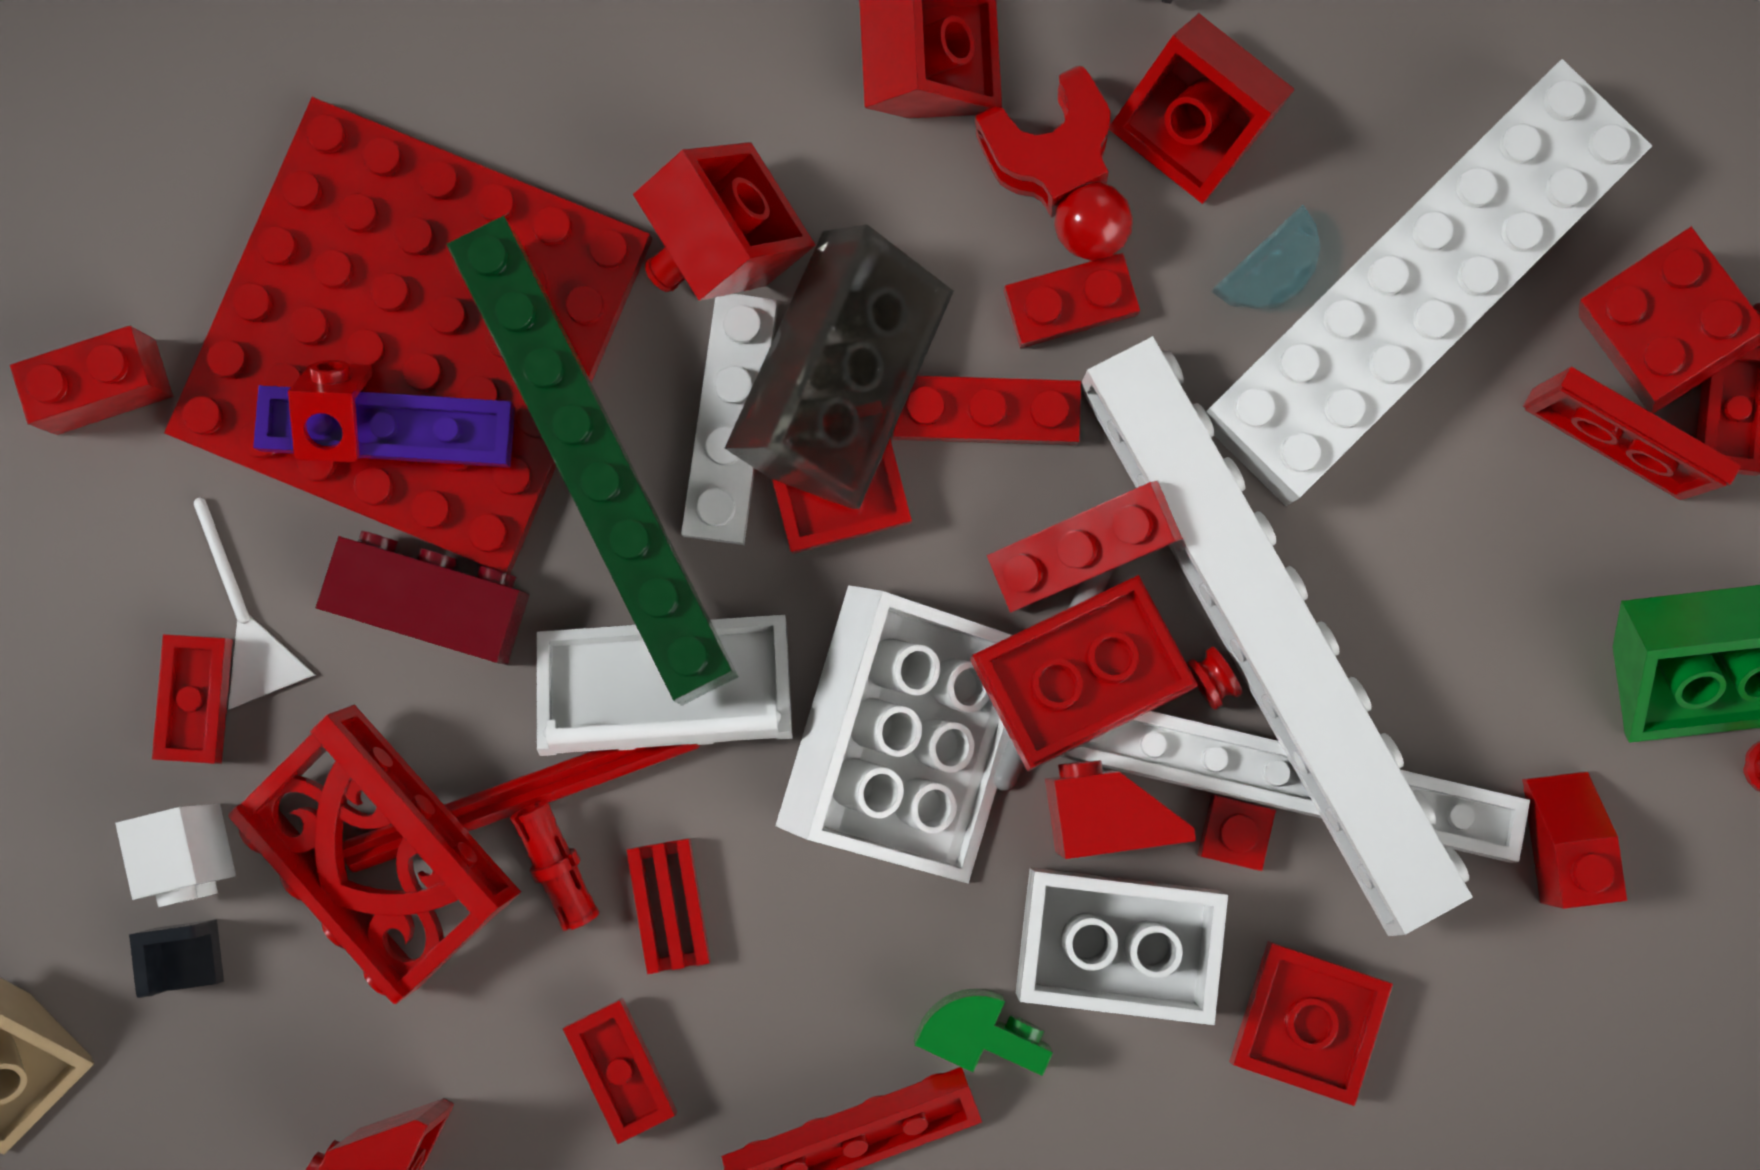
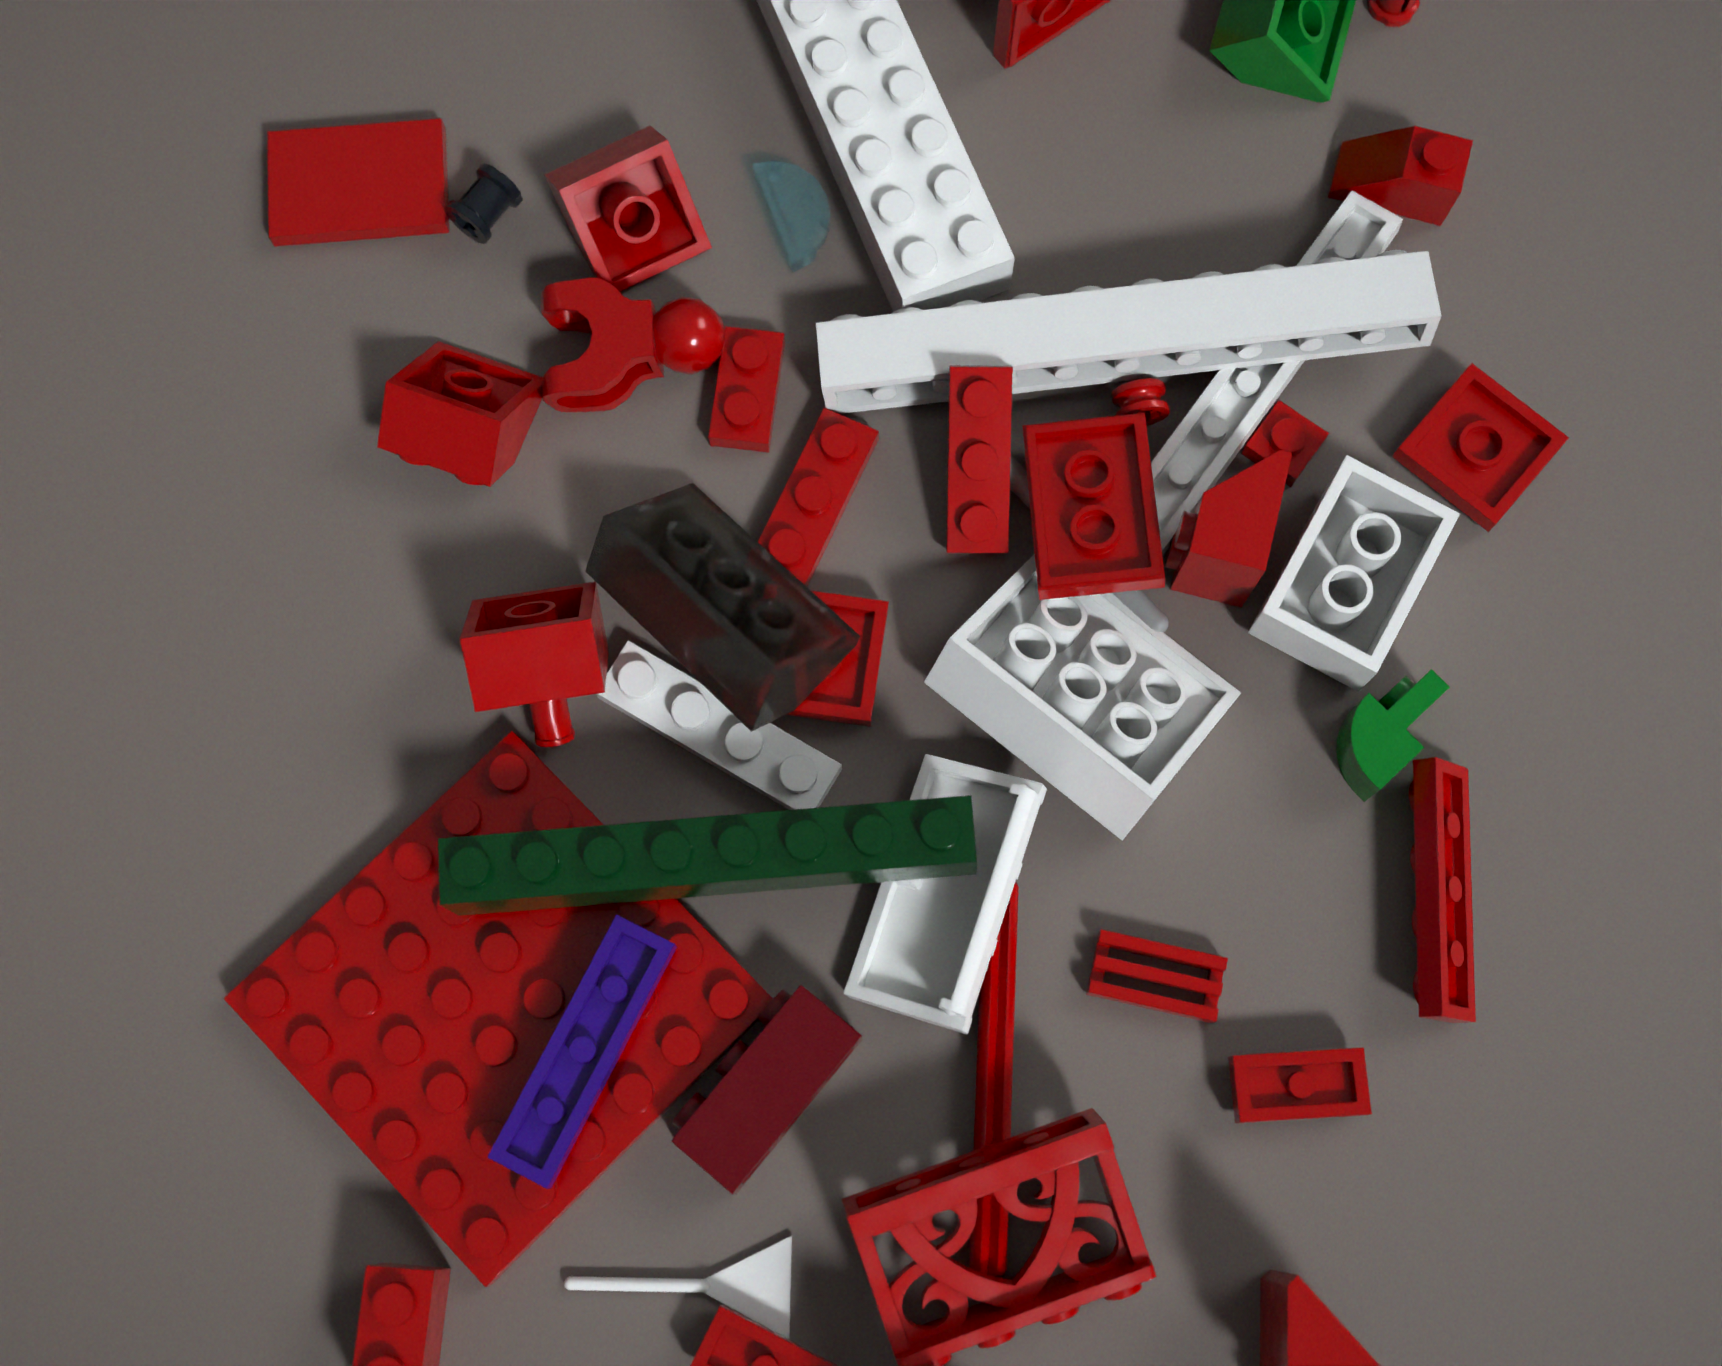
camera: 70 degrees left, 10 degrees down
(331, 390) = (524, 1085): red bracket -> none
(554, 865) = (1078, 1065): red pin -> none

